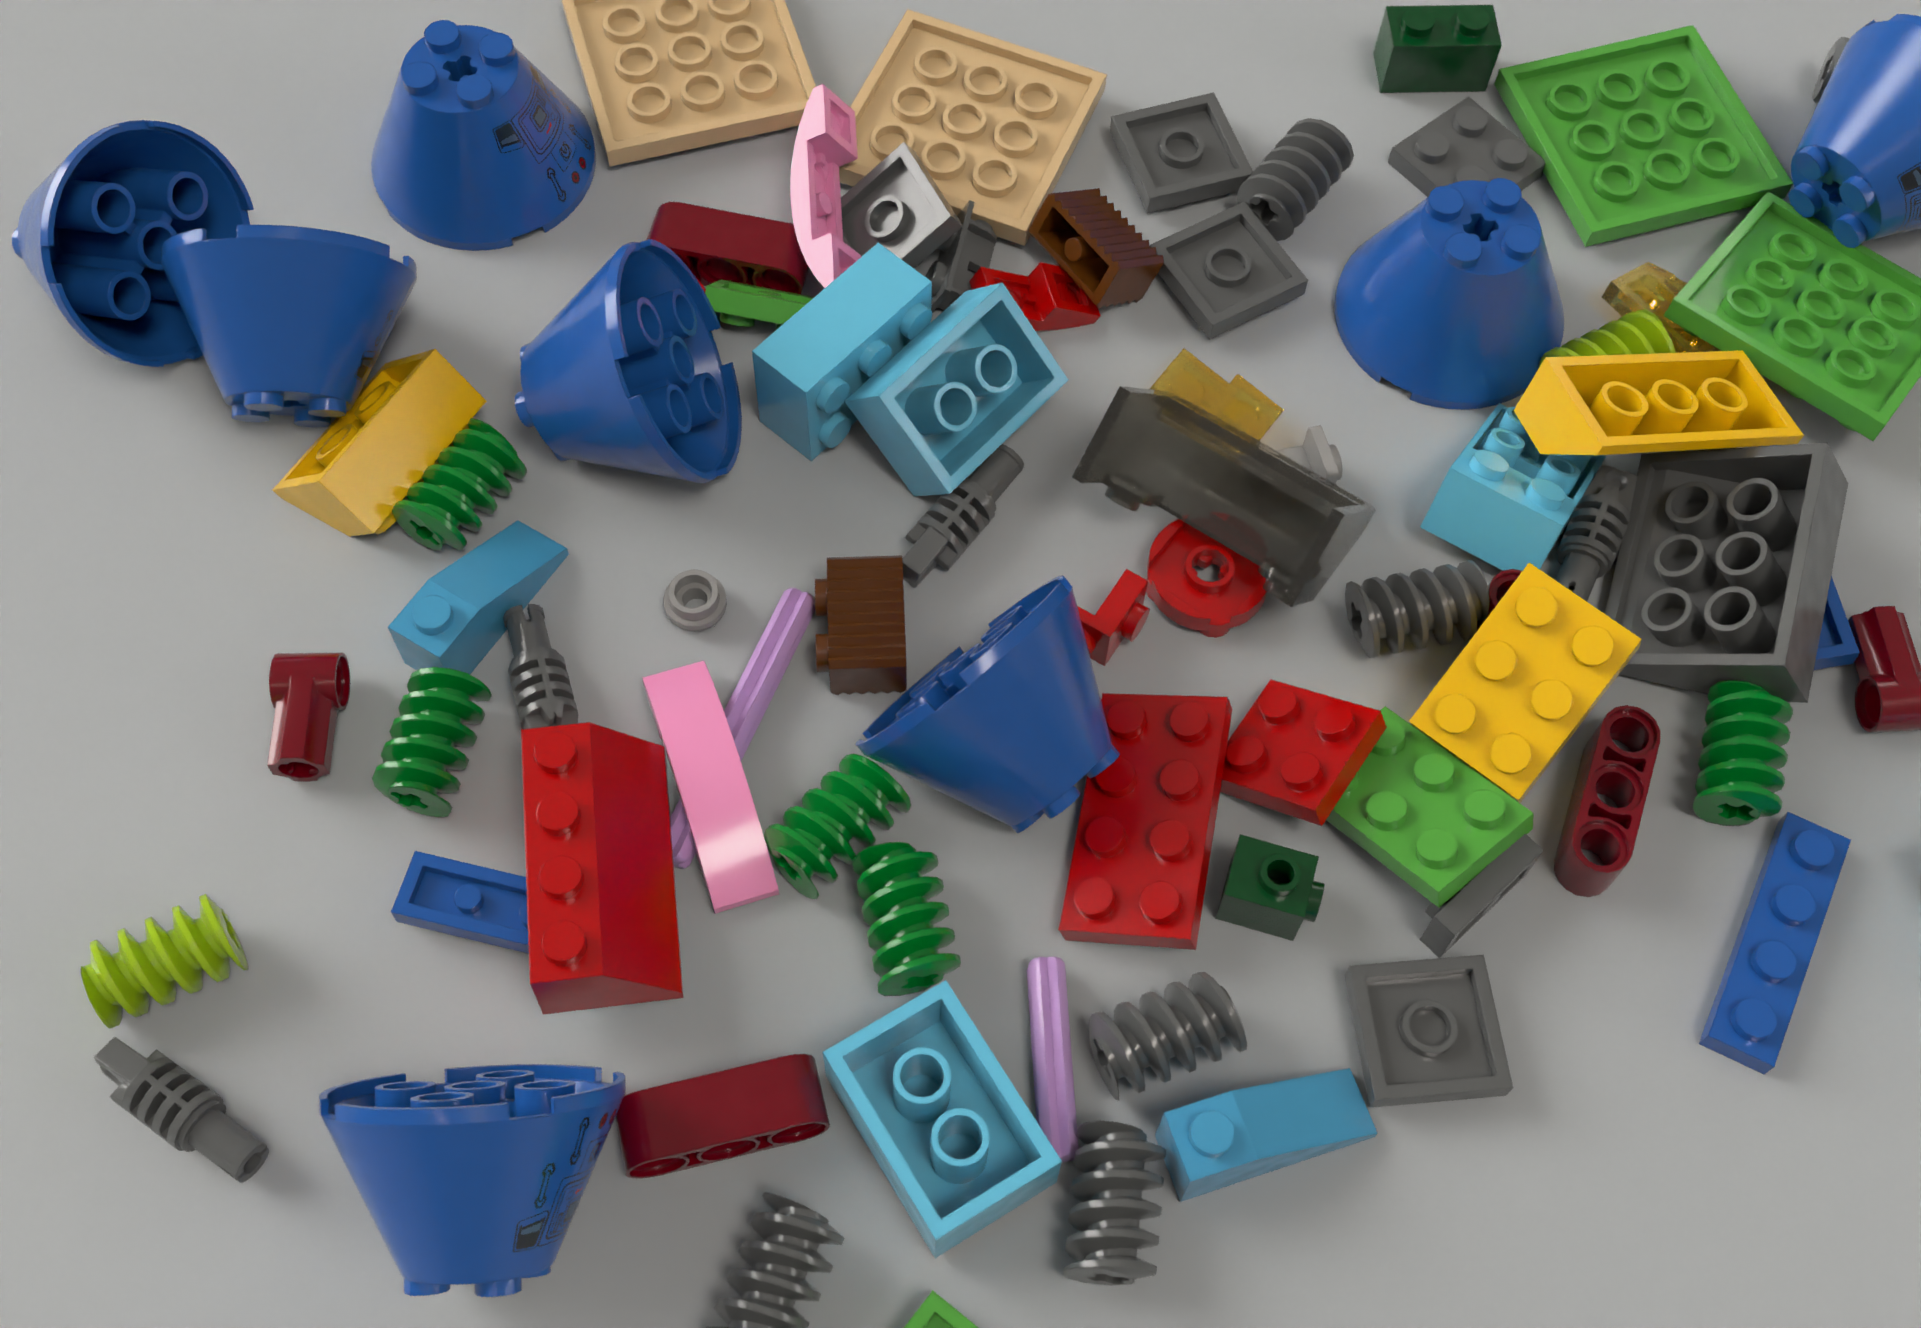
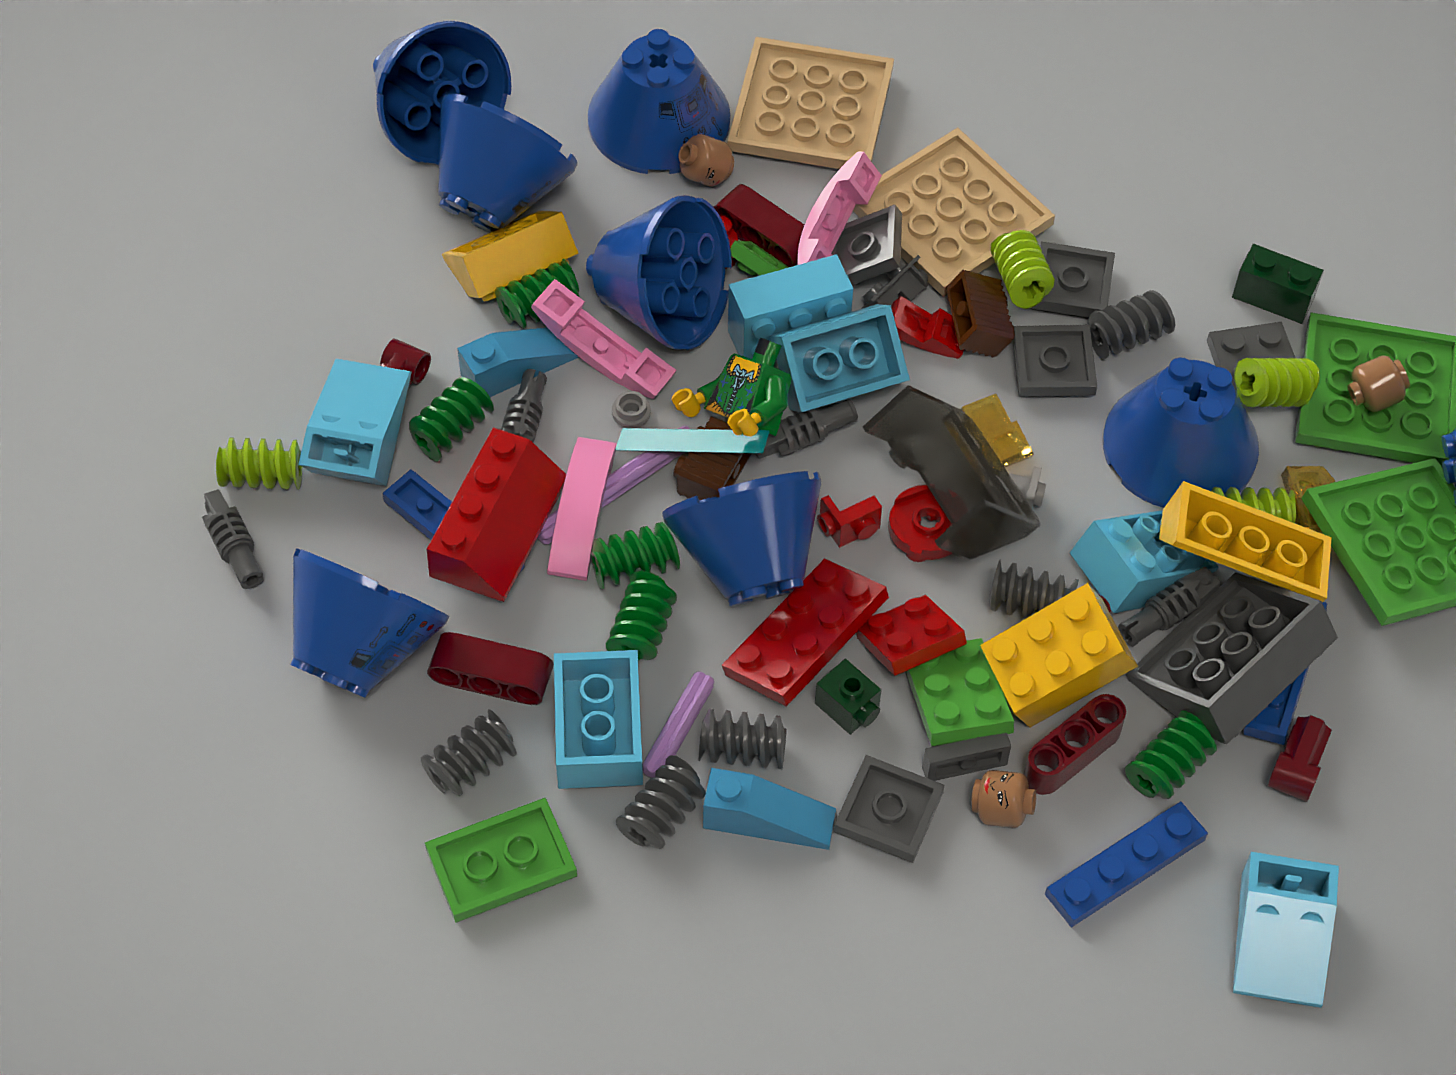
camera: 30 degrees right, 5 degrees down
(288, 818) = (356, 422): none -> medium azure slope
(593, 189) = (706, 160): none -> medium nougat head
(595, 525) = (598, 345): none -> bright pink slope
(823, 607) = (690, 440): none -> sticker
(859, 501) = (745, 392): none -> torso
(1120, 159) = (1022, 268): none -> lime piece
(1545, 167) = (1276, 381): none -> lime piece
(1571, 932) = (1003, 798): none -> medium nougat head
(1655, 122) = (1378, 383): none -> medium nougat head

